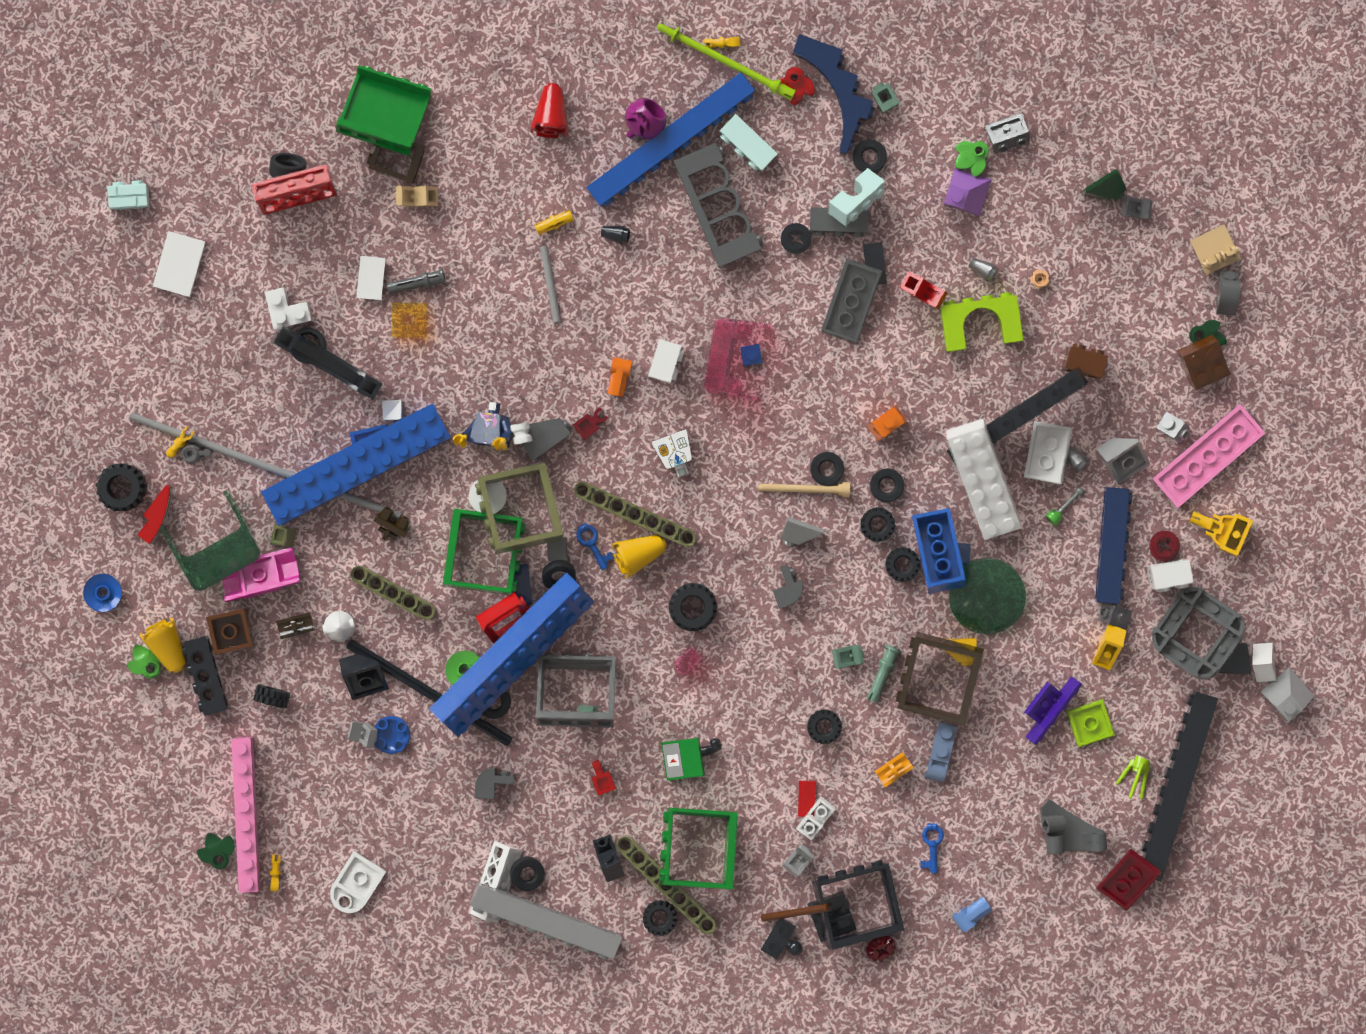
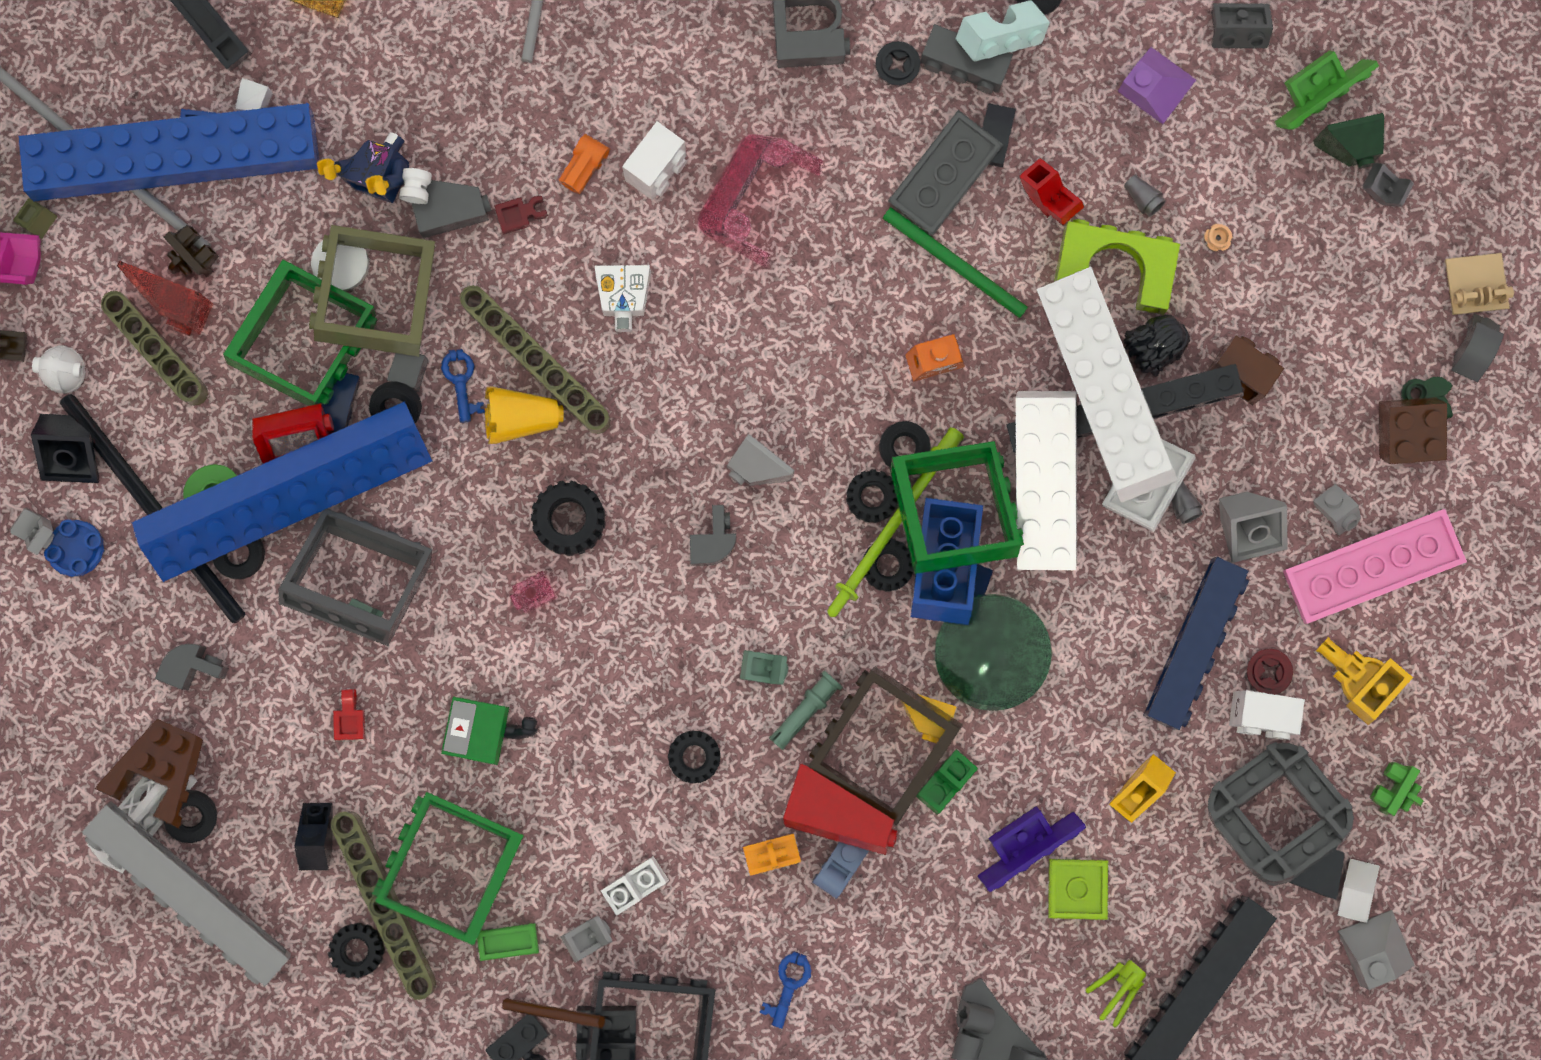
camera: 15 degrees right, 5 degrees down
(394, 560) = (181, 306): none -> clear red slope
(497, 843) = (163, 756): none -> reddish brown wing
(750, 880) = (508, 942): none -> bright green tile
(751, 355) = (778, 200): blue plate -> none
(806, 797) = (632, 850): red piece -> none
(815, 468) = (827, 411): black tyre -> none
(842, 489) = (839, 429): tan piece -> none
(877, 355) = (955, 262): none -> green piece
(911, 484) = (847, 591): none -> lime bar
(915, 487) = (952, 458): none -> green window
(925, 731) = (836, 814): none -> red slope
(969, 158) = (1178, 40): bright green plate -> none
(986, 686) = (946, 782): none -> green slope
(1000, 408) = (1106, 385): none -> white brick
(1023, 363) = (1157, 343): none -> black hair
(1055, 516) = (1127, 574): hinge -> none
(1072, 155) = (1320, 84): none -> bright green bracket
(1114, 615) = (1165, 745): flat silver bracket -> none
(1268, 582) = (1391, 800): none -> bright green hips

